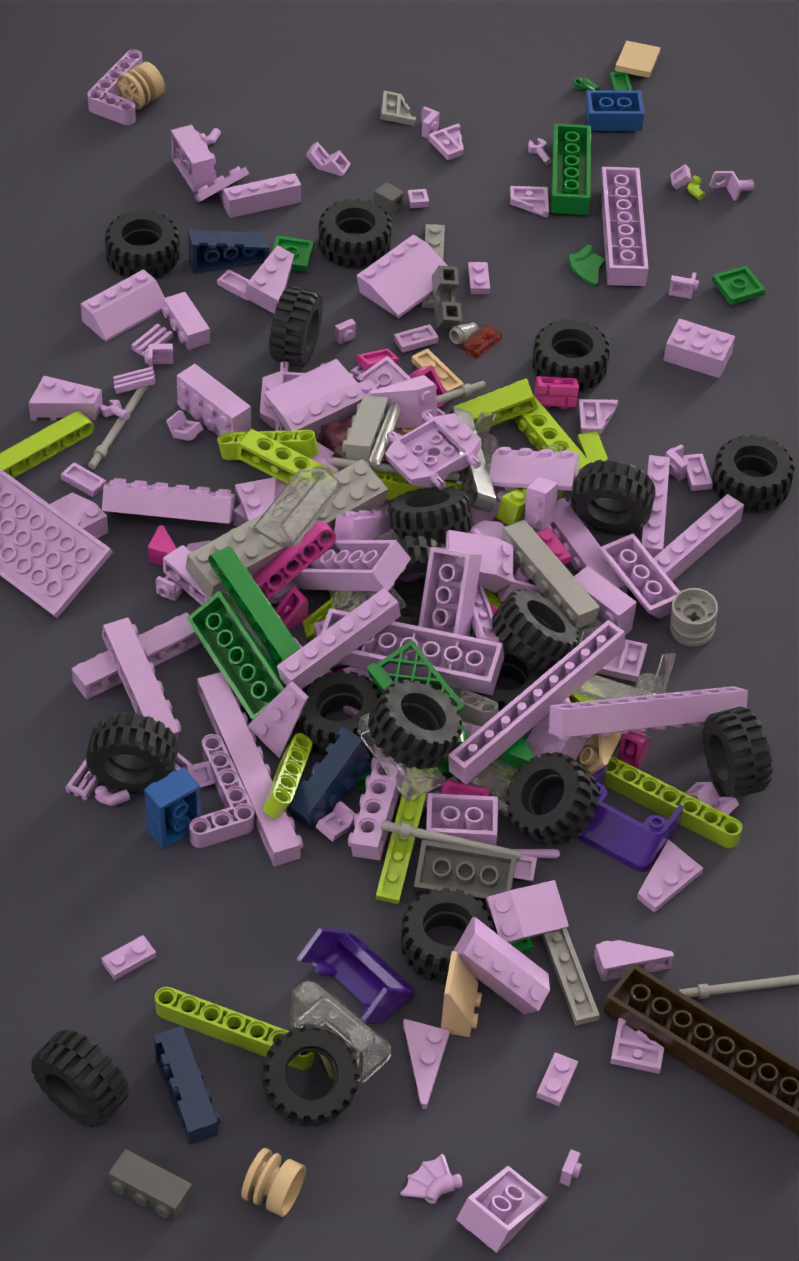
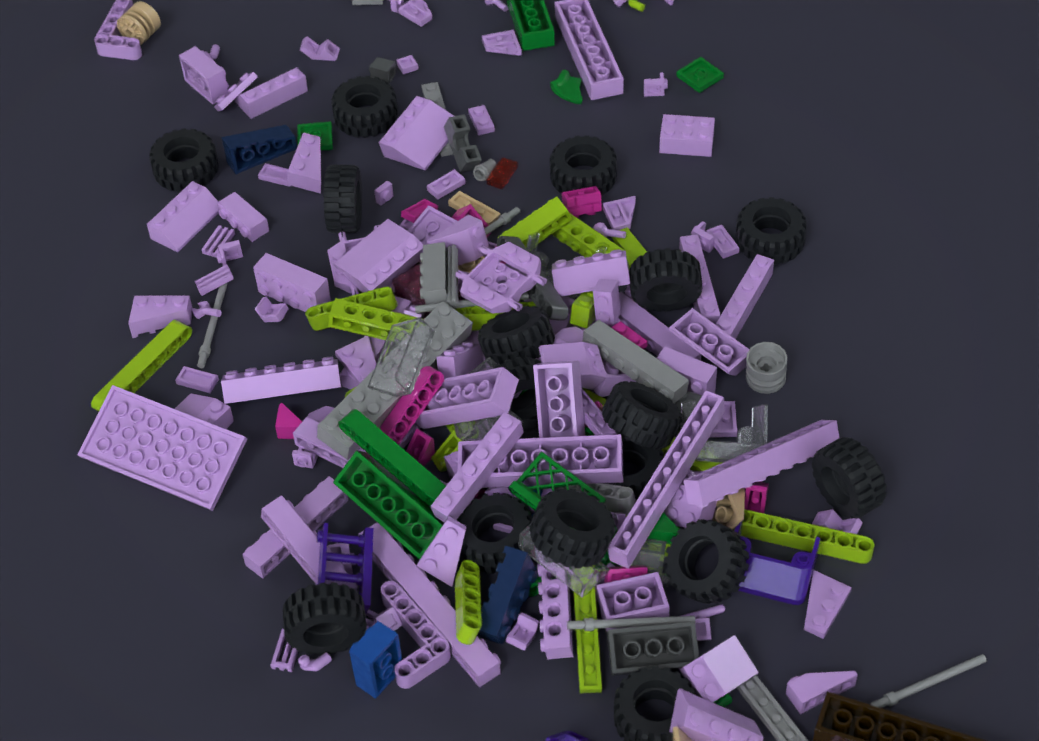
camera: 10 degrees left, 0 degrees up
(176, 693) = (343, 548): none -> lavender bracket
(192, 705) = (363, 560): none -> dark purple fence
(569, 429) = (602, 229): none -> lavender bar

